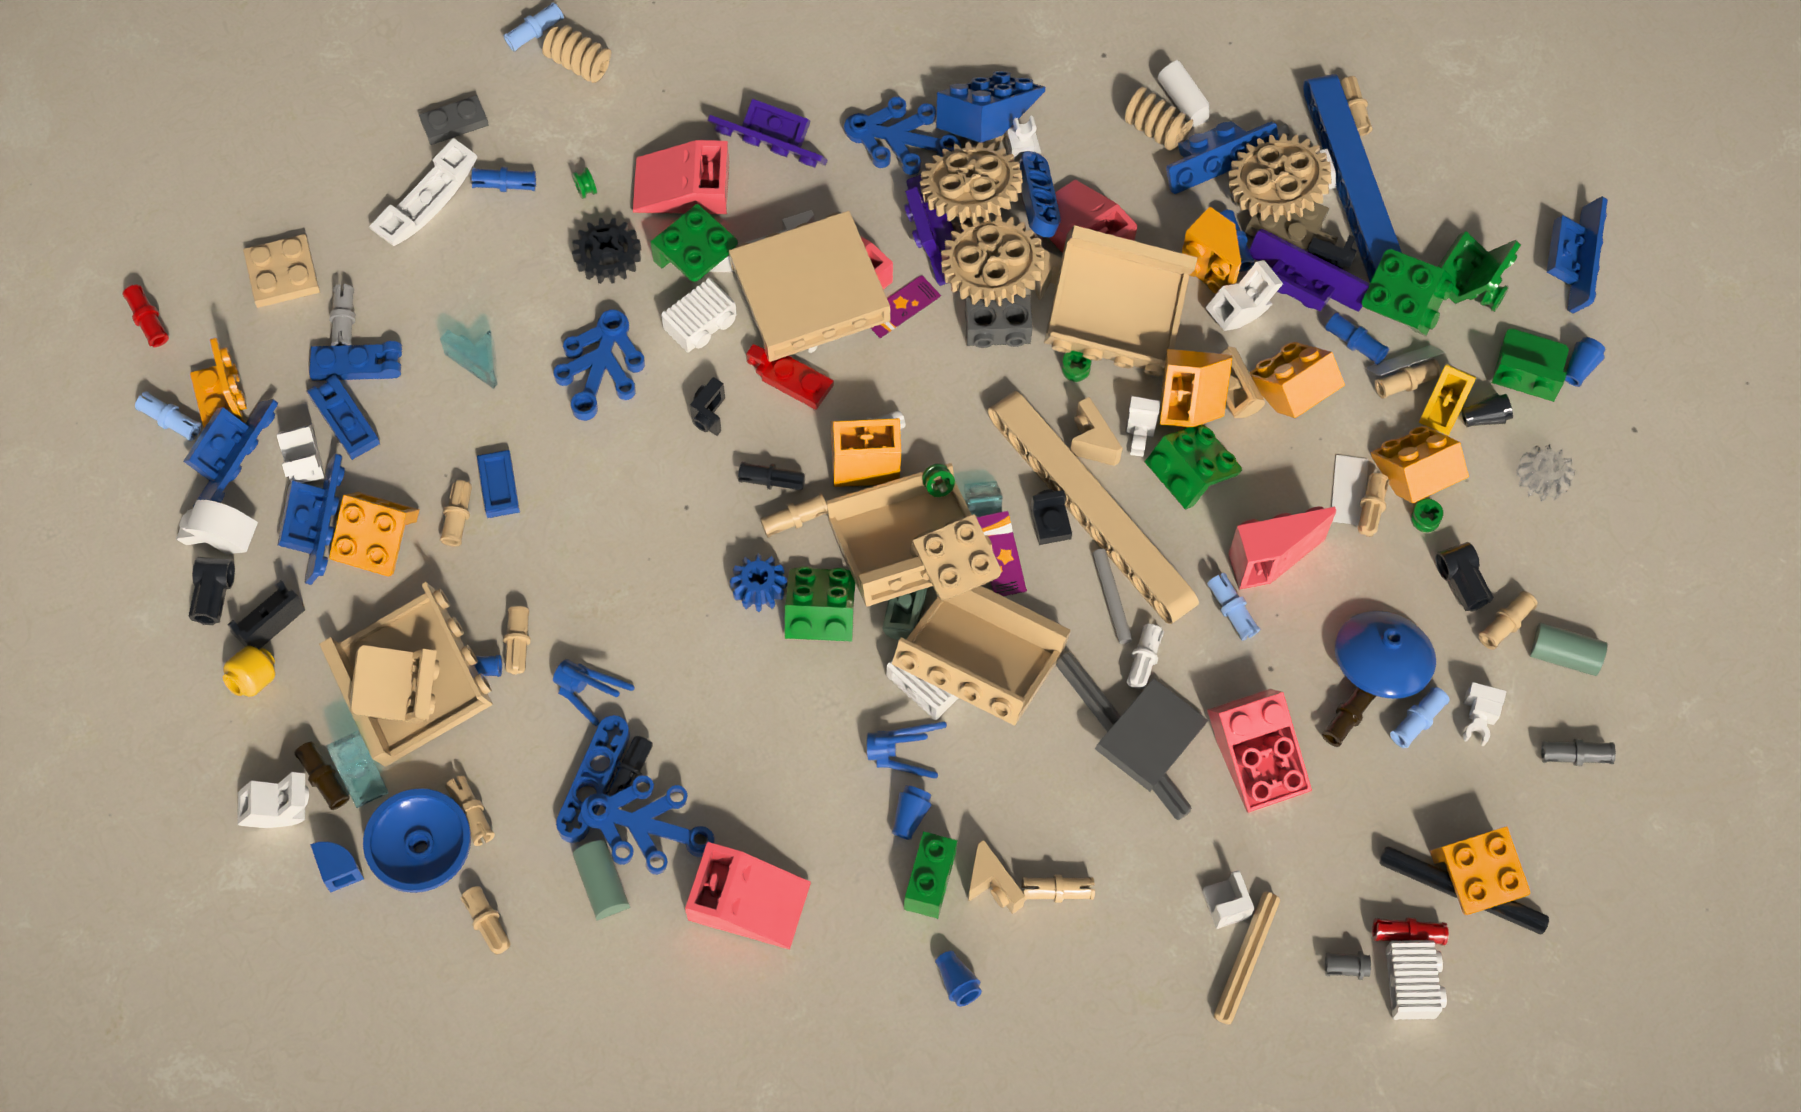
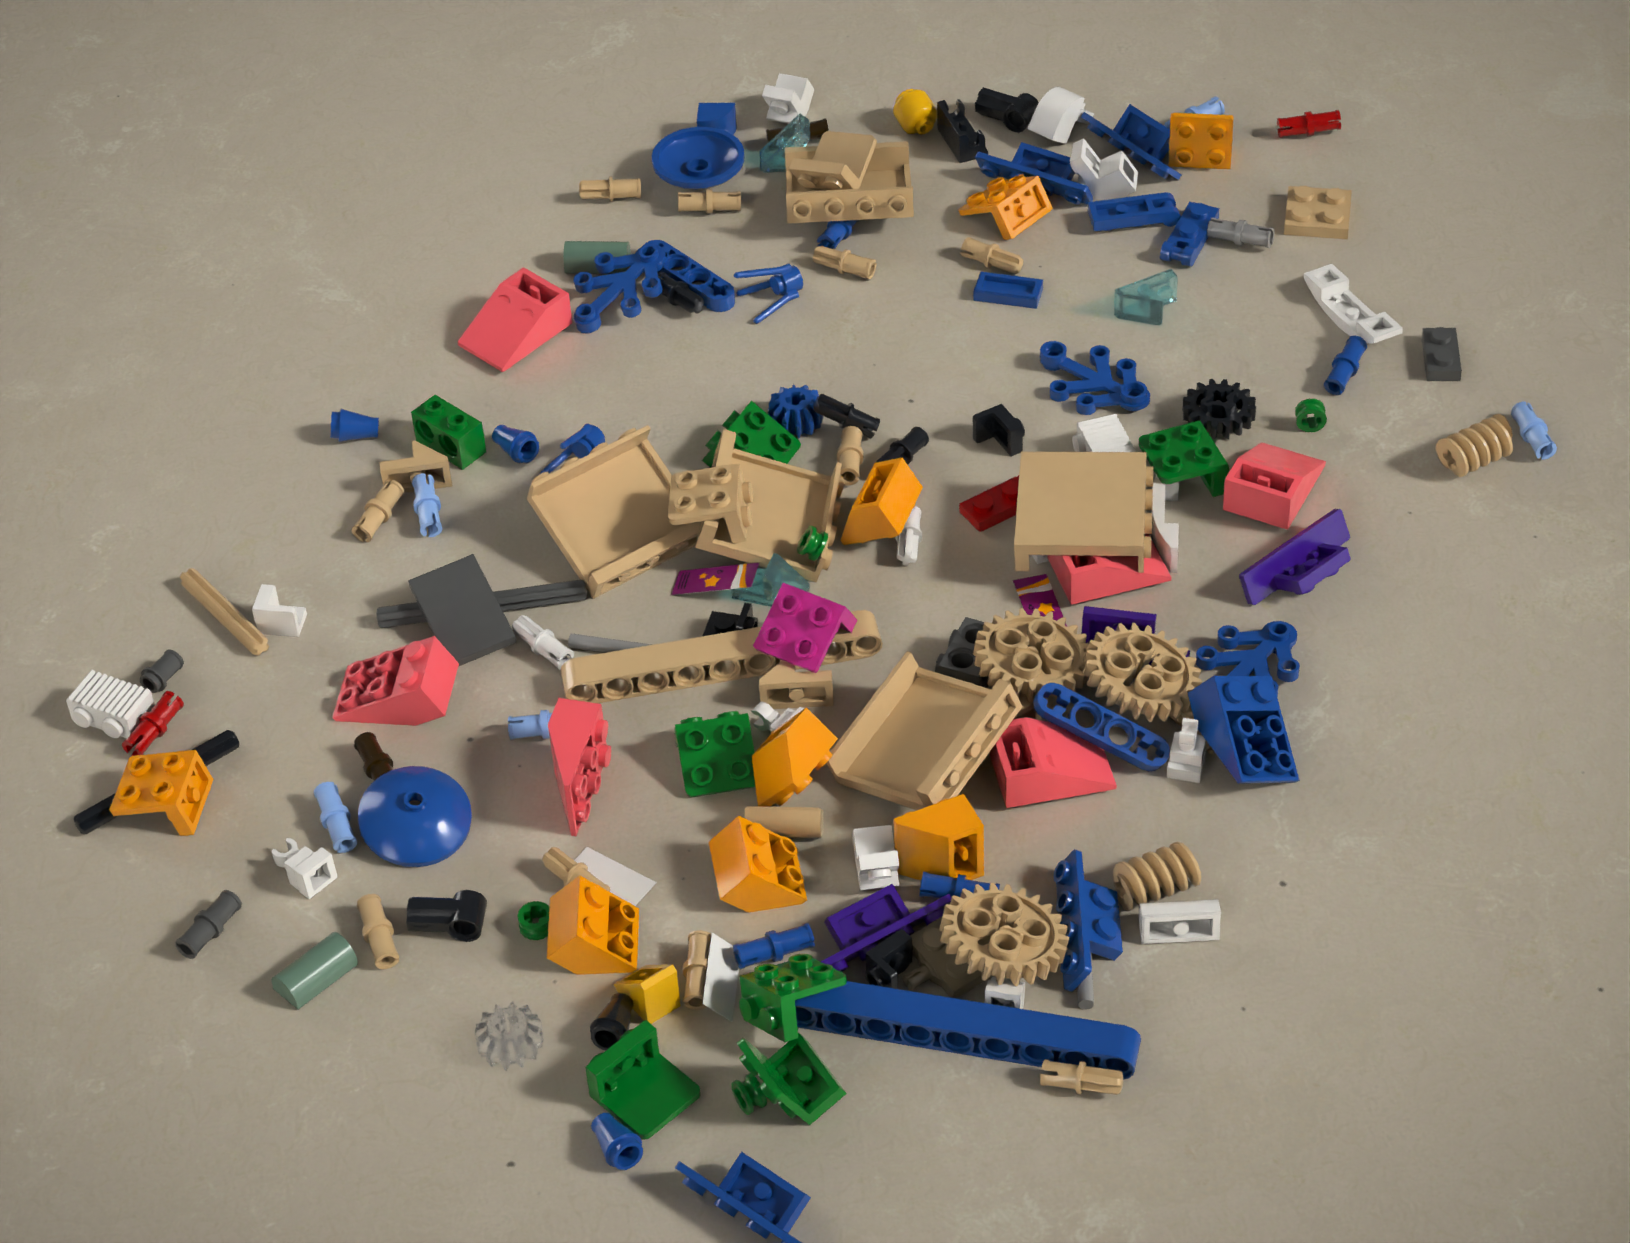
camera: 120 degrees right, 20 degrees down
(753, 529) = (846, 415): none -> black axle
(1030, 846) = (427, 505): none -> light blue pin
(1051, 428) = (802, 627): none -> dark pink bracket

